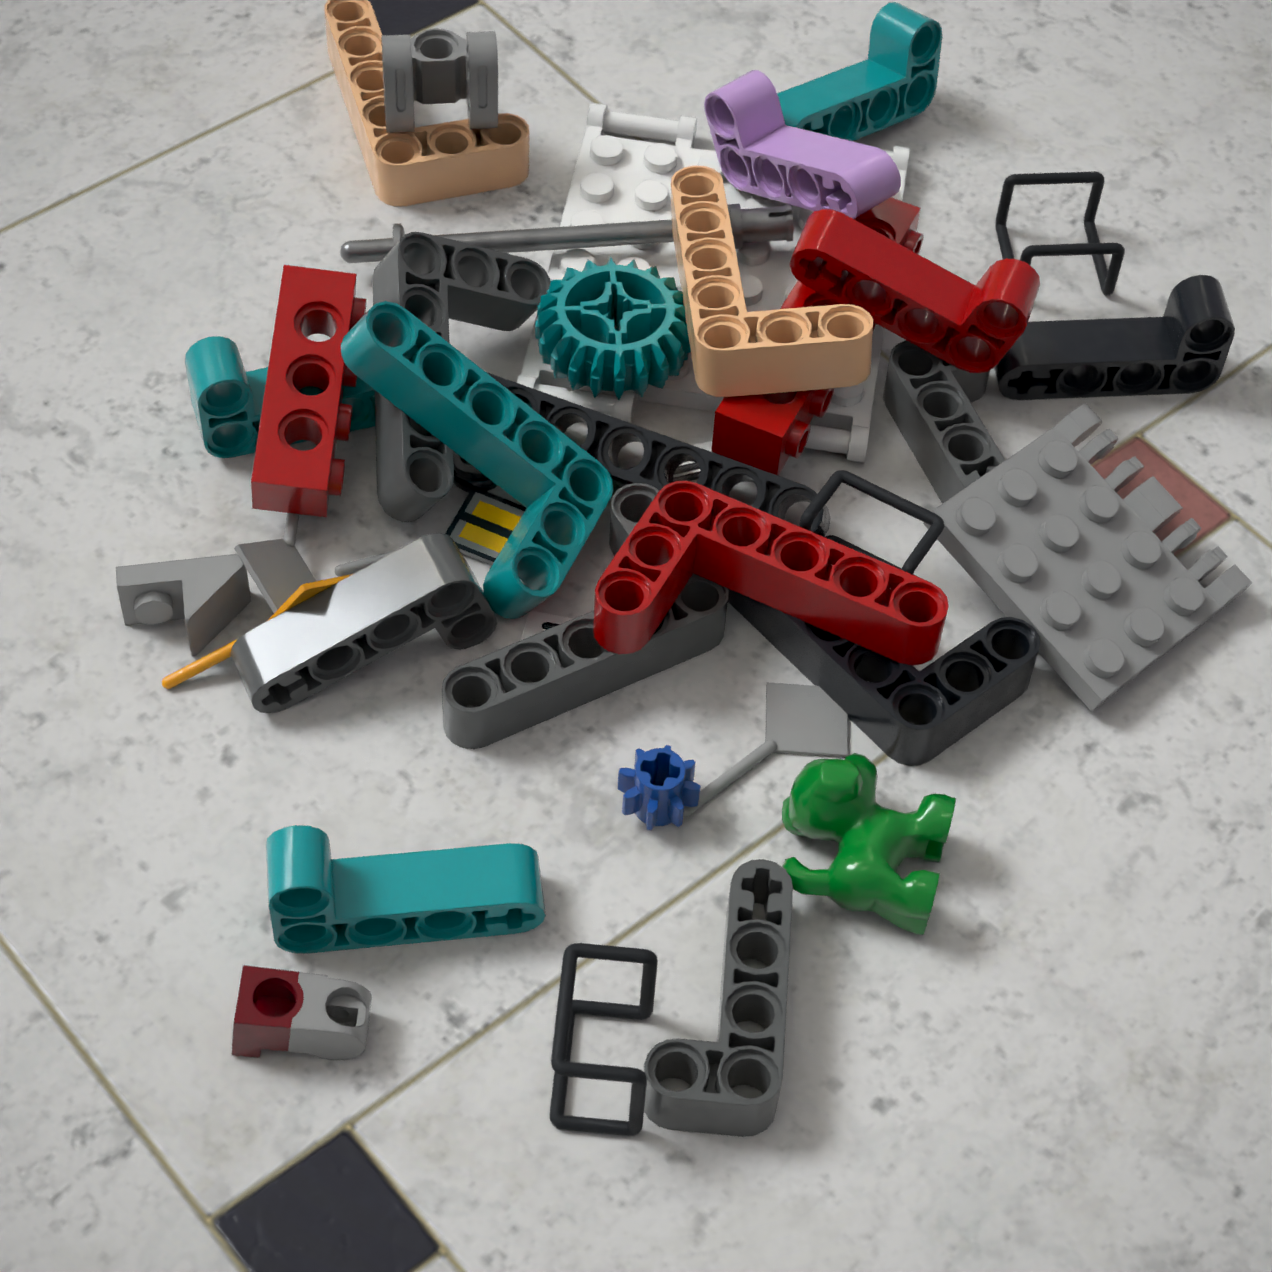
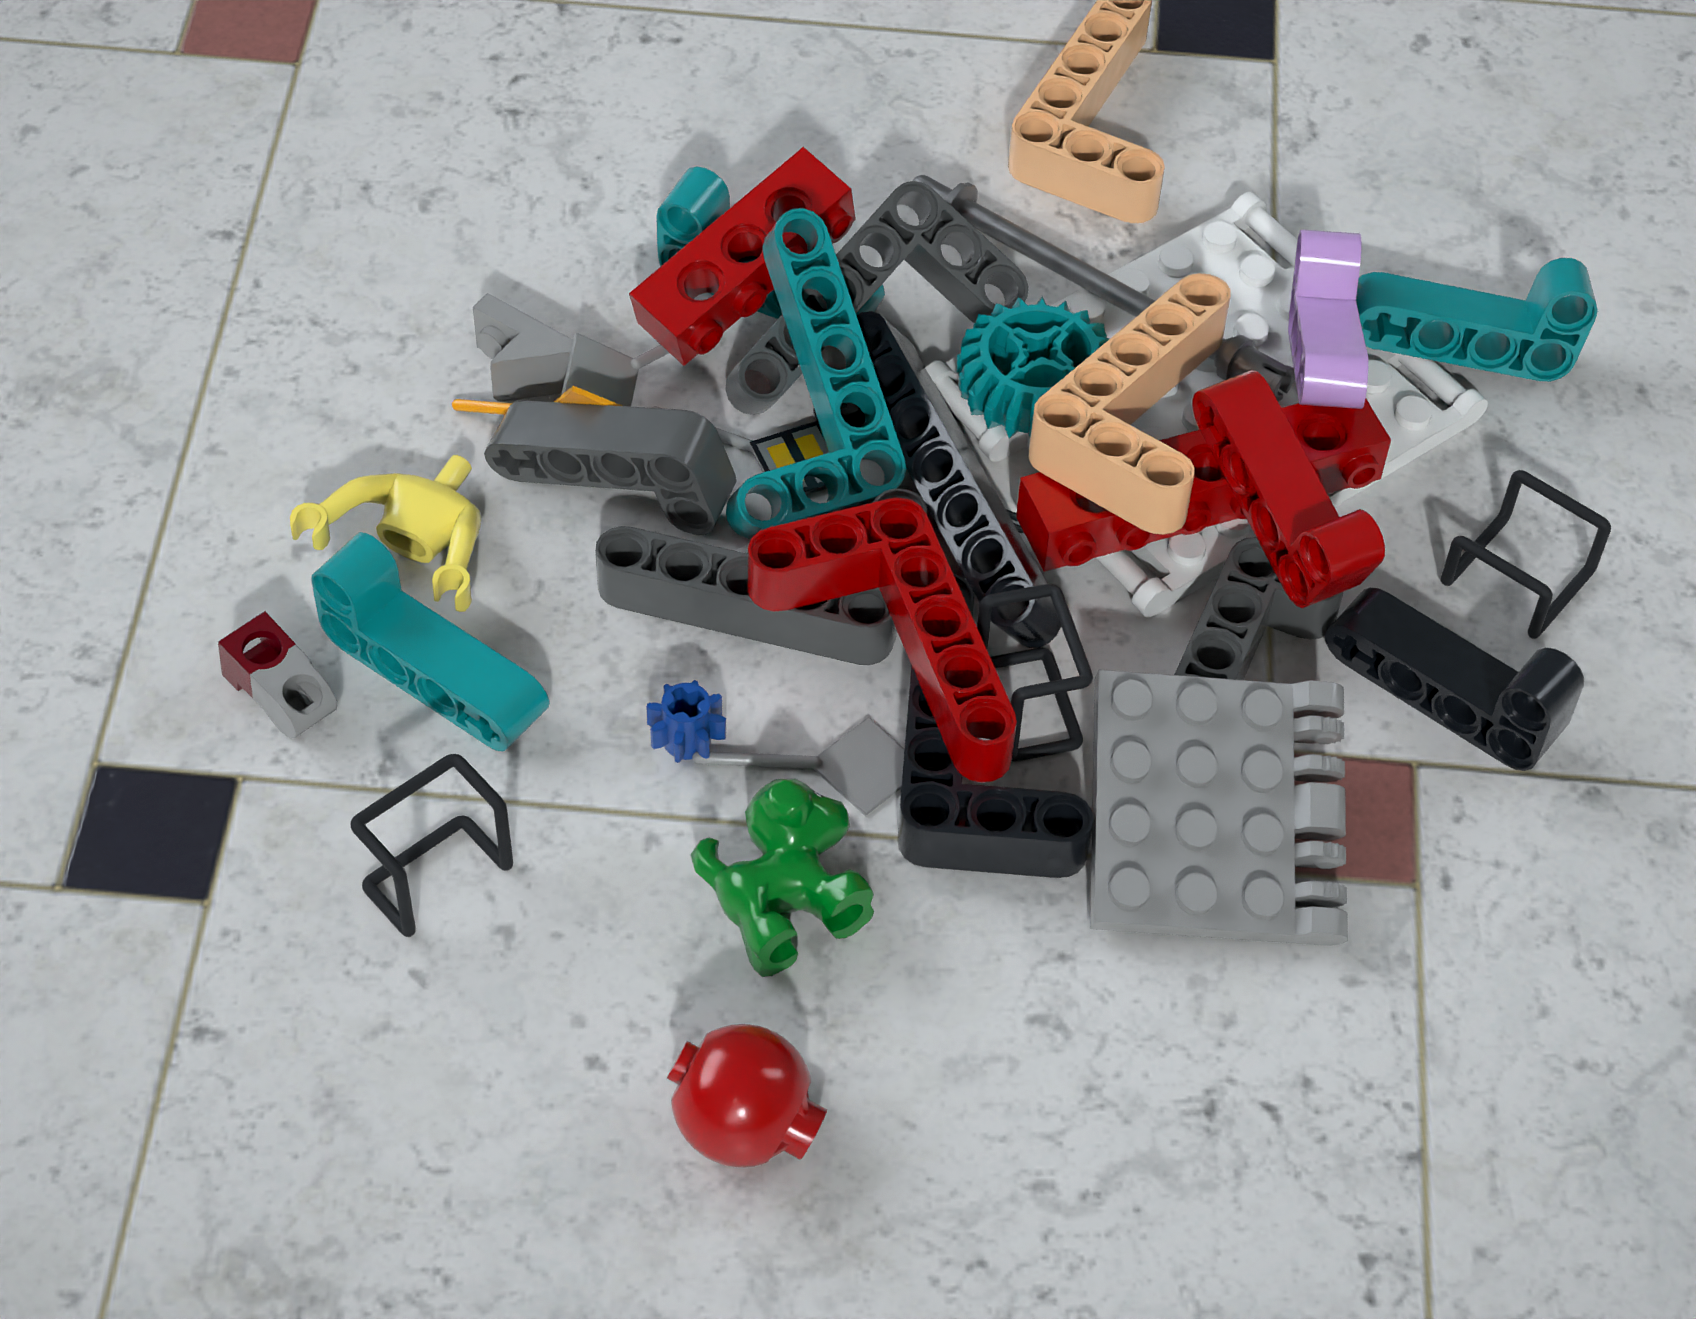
camera: 45 degrees right, 0 degrees up
(260, 795) = (416, 523): none -> light yellow piece
(440, 70) = (1117, 74): light grey piece -> none
(745, 995) = (641, 860): dark grey beam -> none
(1039, 1029) = (744, 1096): none -> red brick

